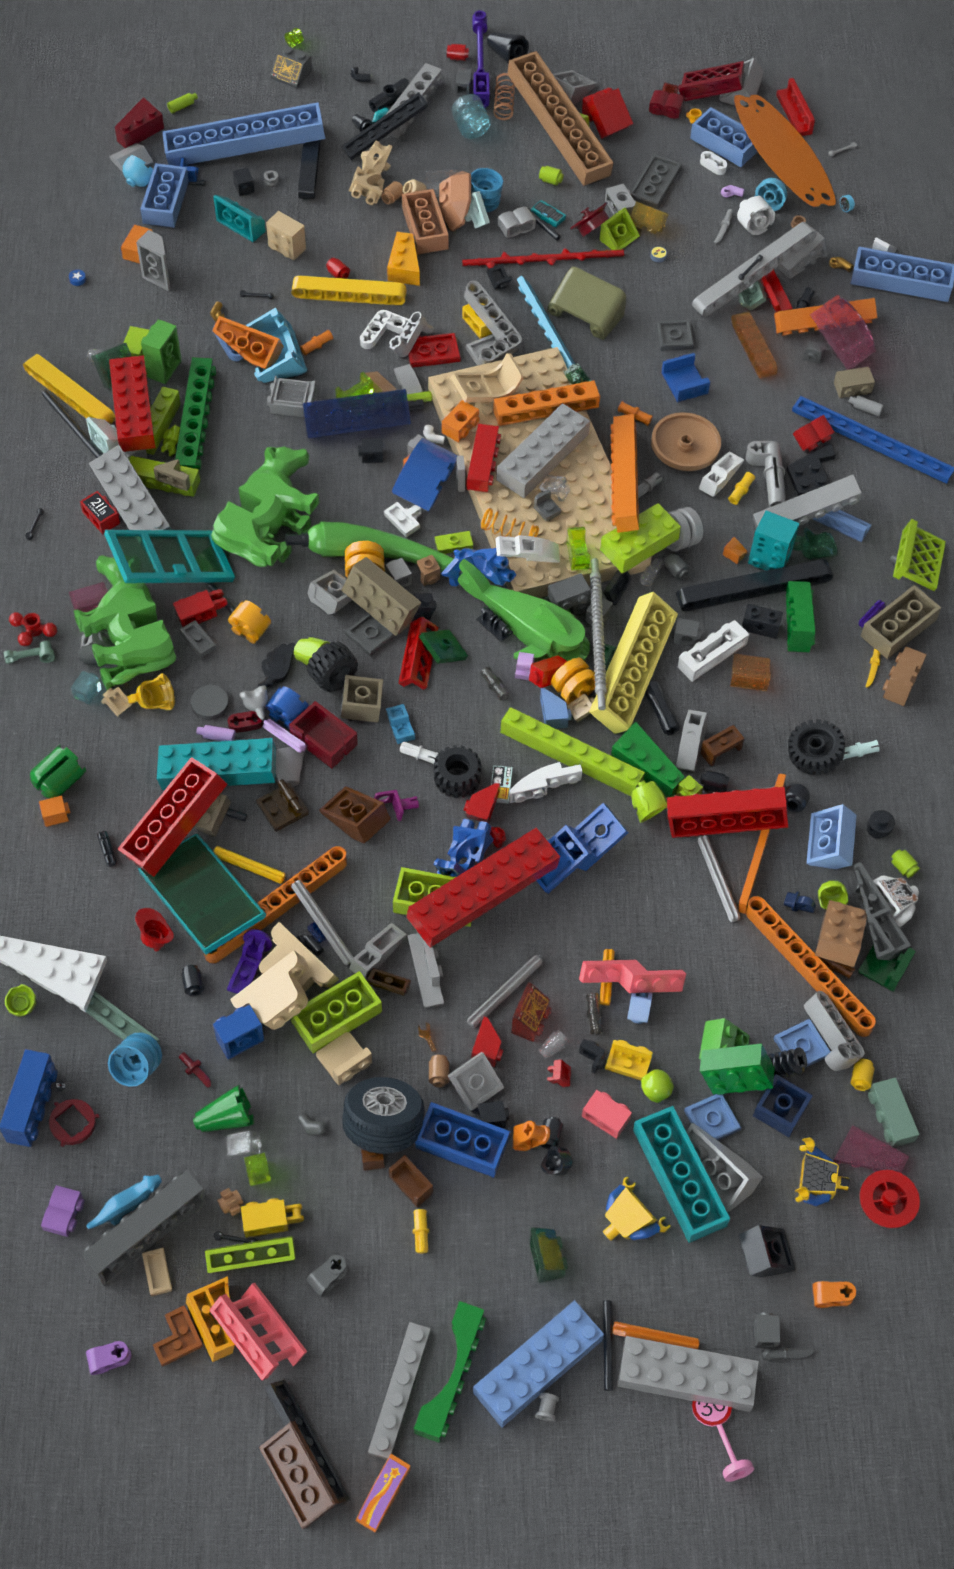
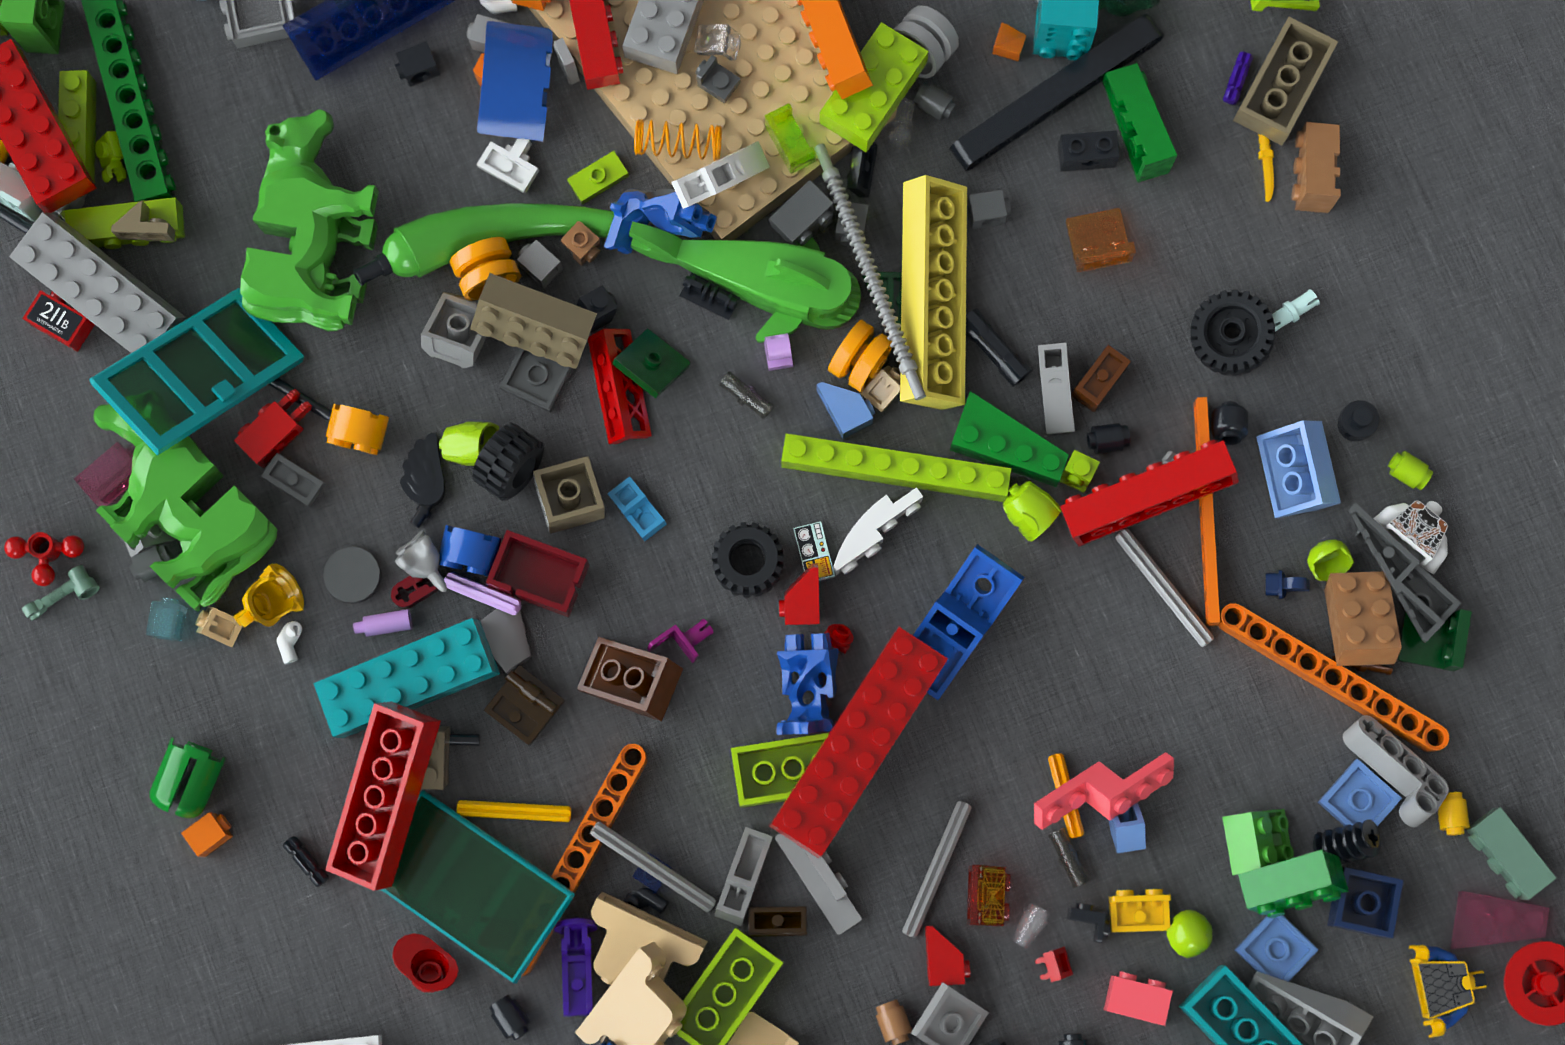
camera: 15 degrees left, 20 degrees up
(153, 723) = (287, 640): none -> white arm
(418, 752) = (680, 546): white axle -> none
(426, 1034) = (859, 977): clear orange hand -> none
(543, 671) = (815, 353): red brick -> none
(691, 662) = (1058, 187): white brick -> none

